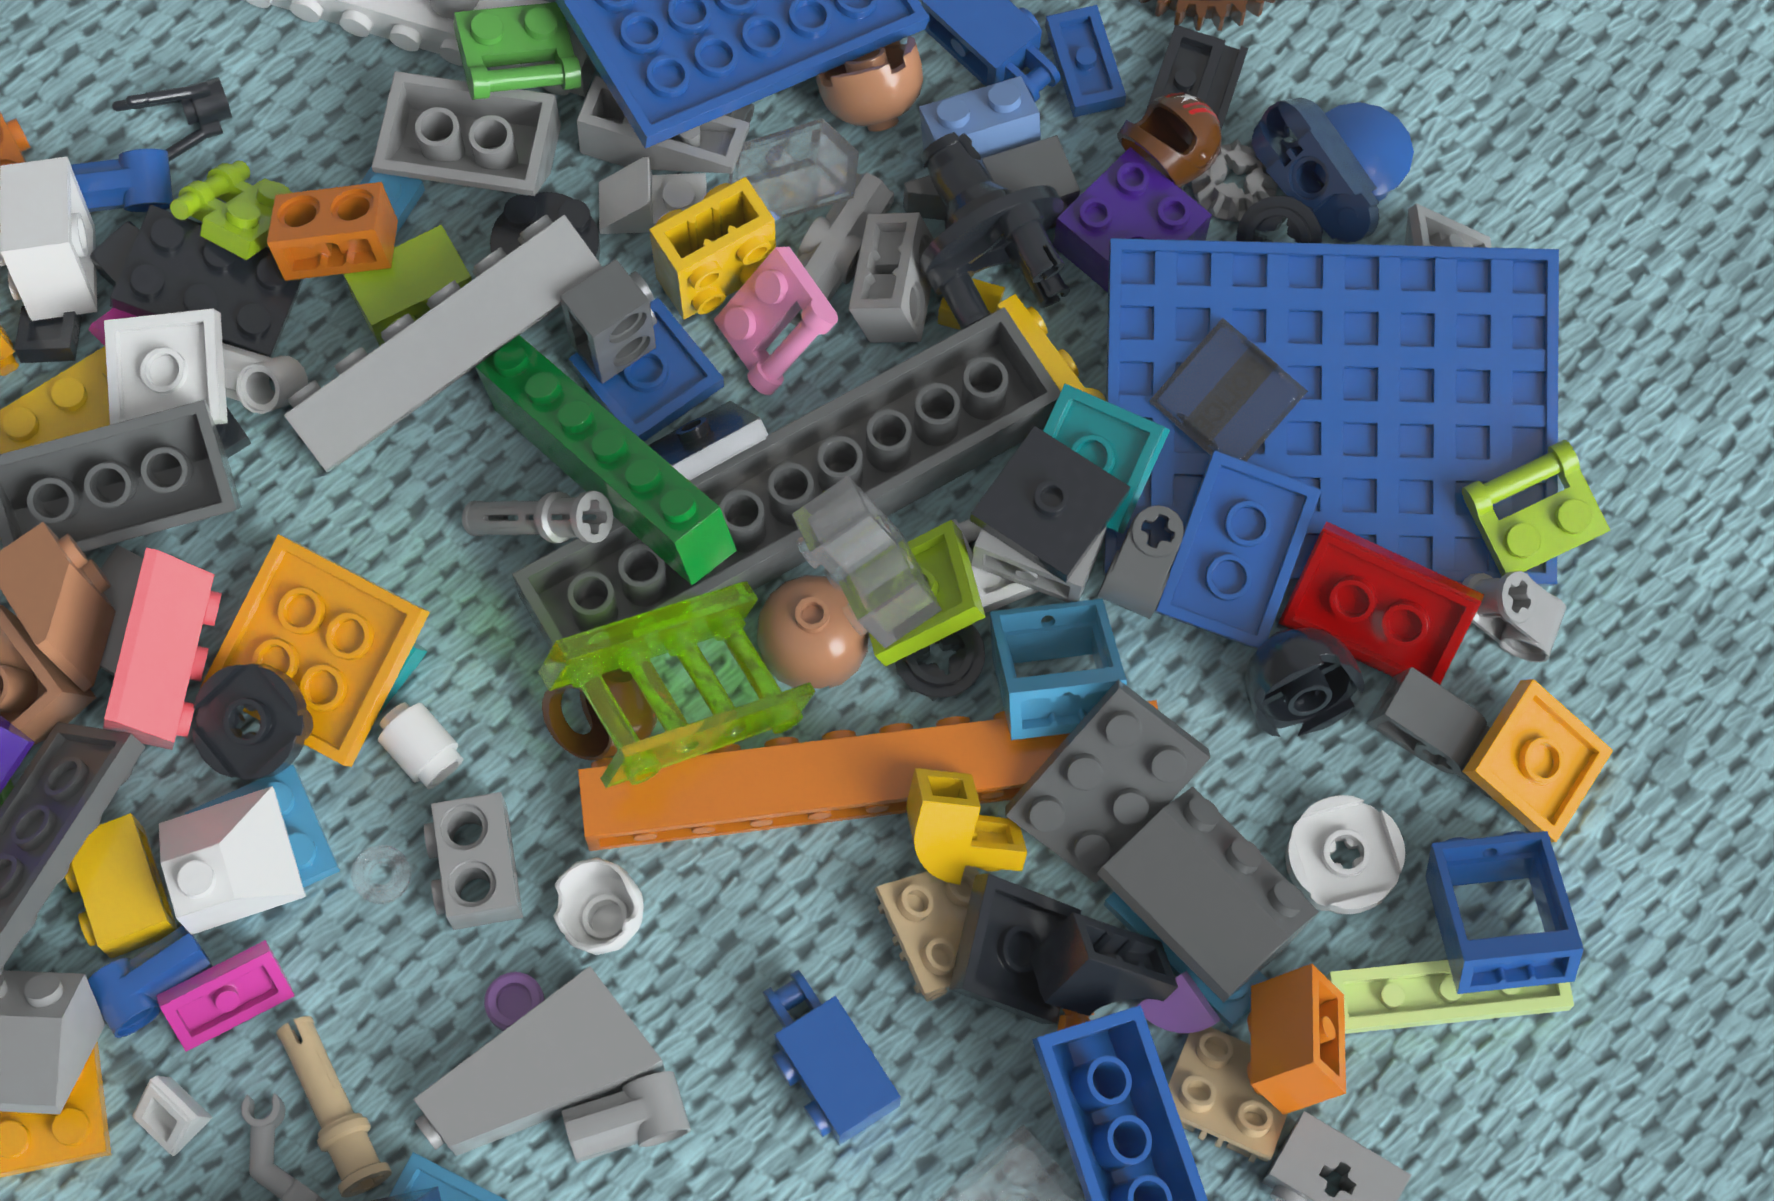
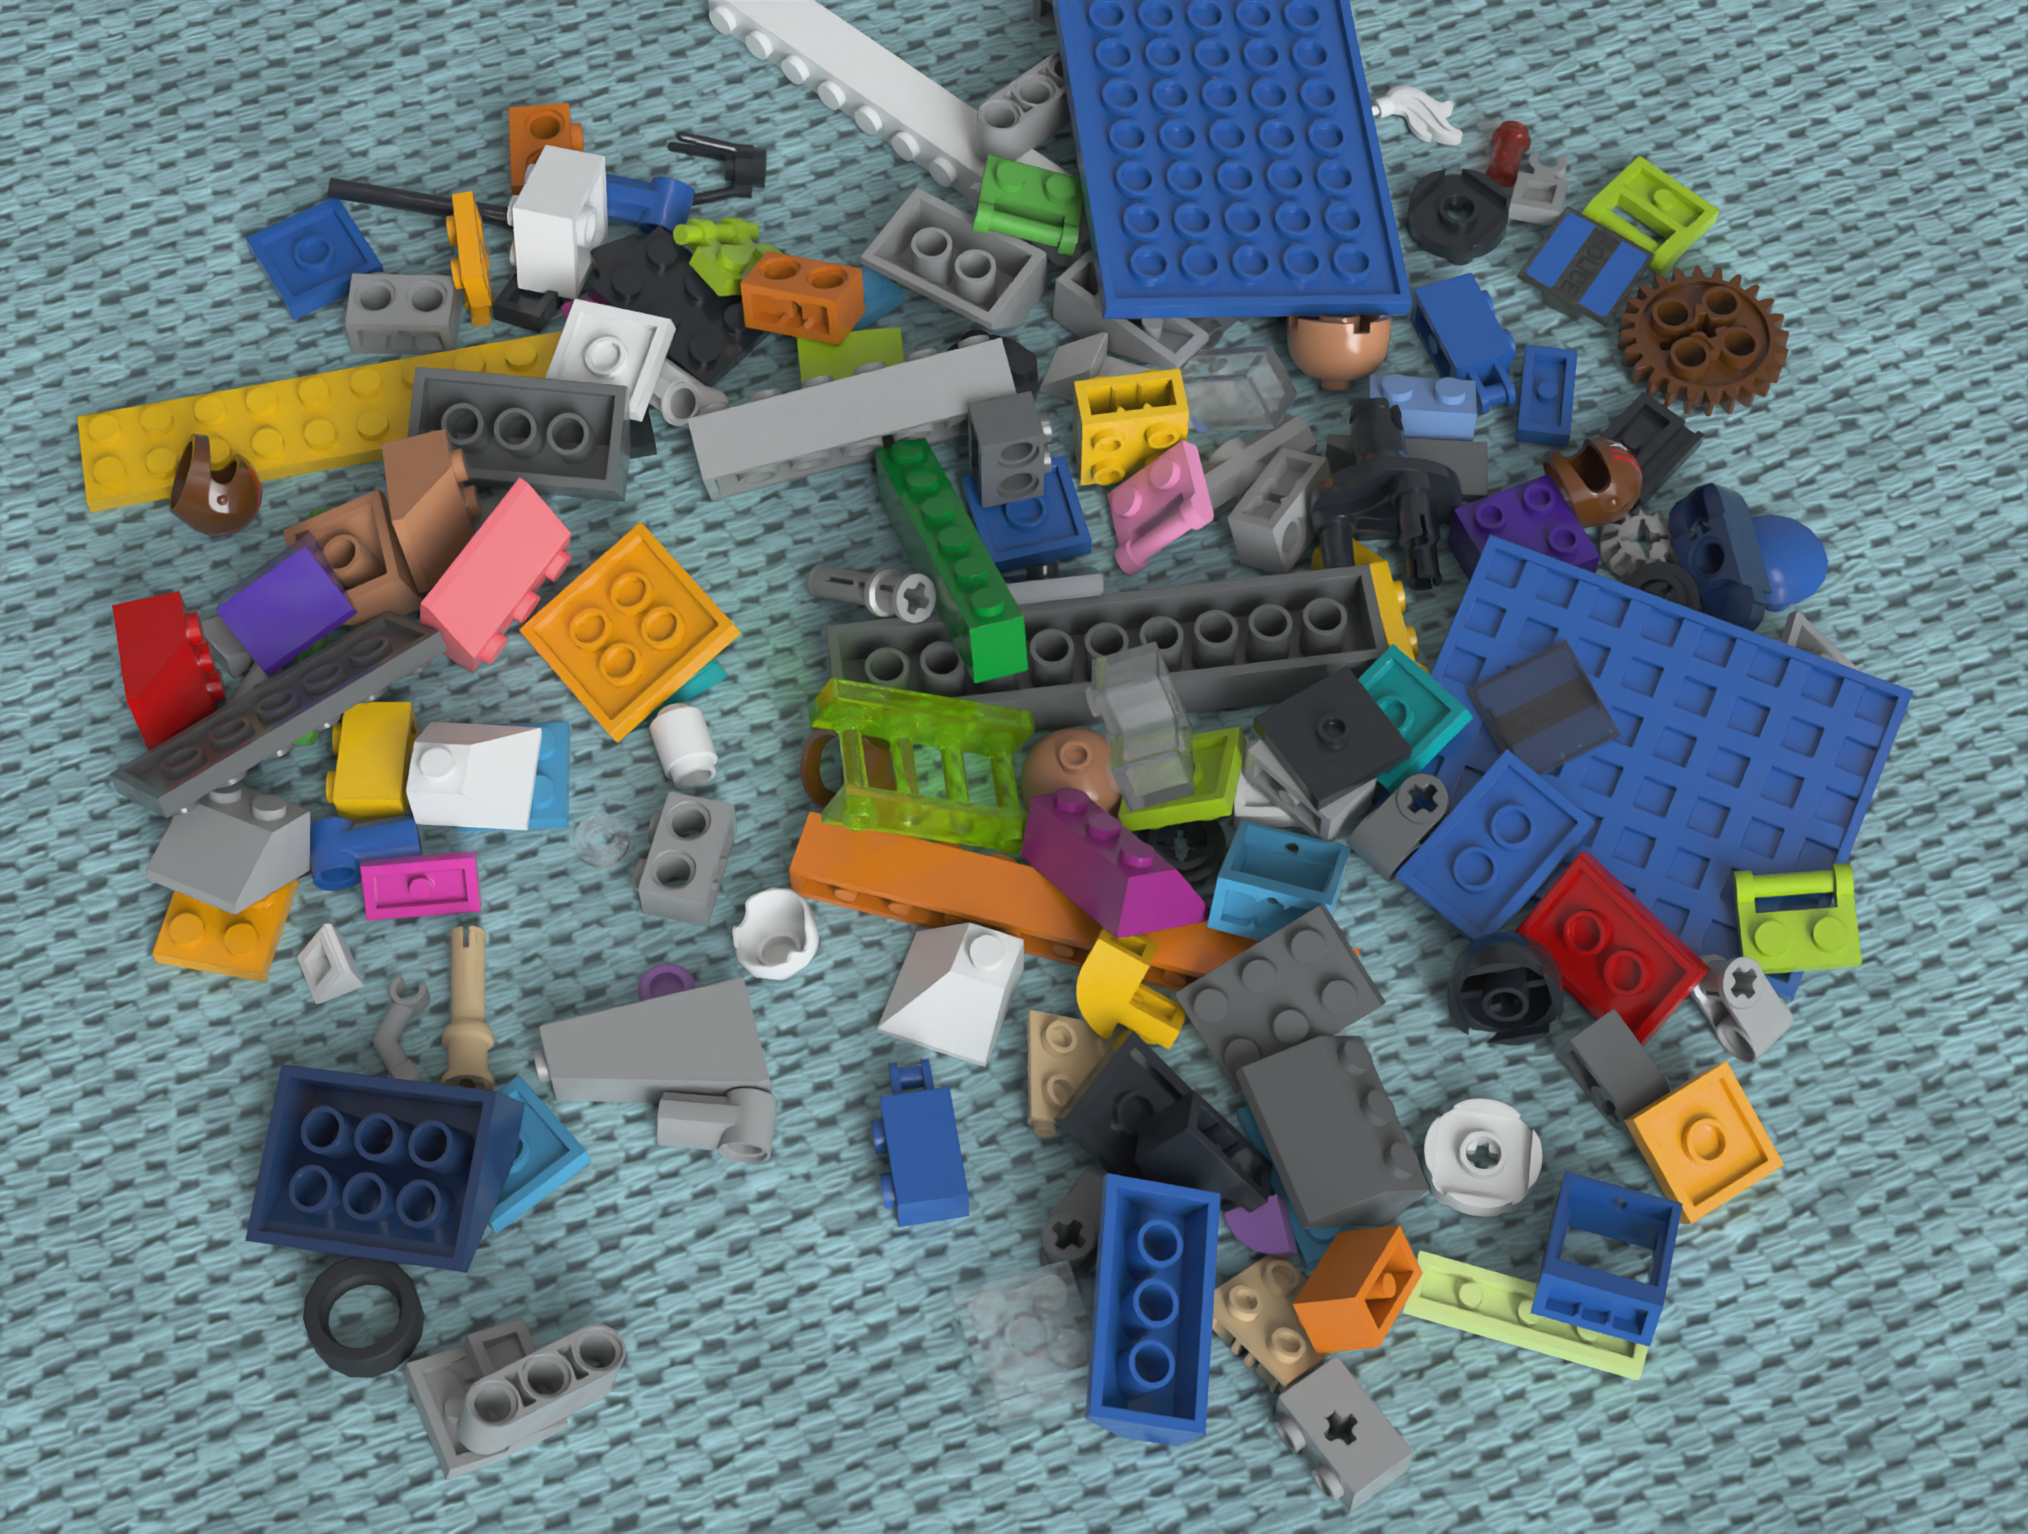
camera: 25 degrees right, 10 degrees down
(282, 729) = (567, 687): black plate -> none
(789, 891) = (955, 990): none -> white slope
(891, 720) = (1106, 867): none -> magenta slope
(1013, 1070) = (1077, 1223): none -> dark grey piece

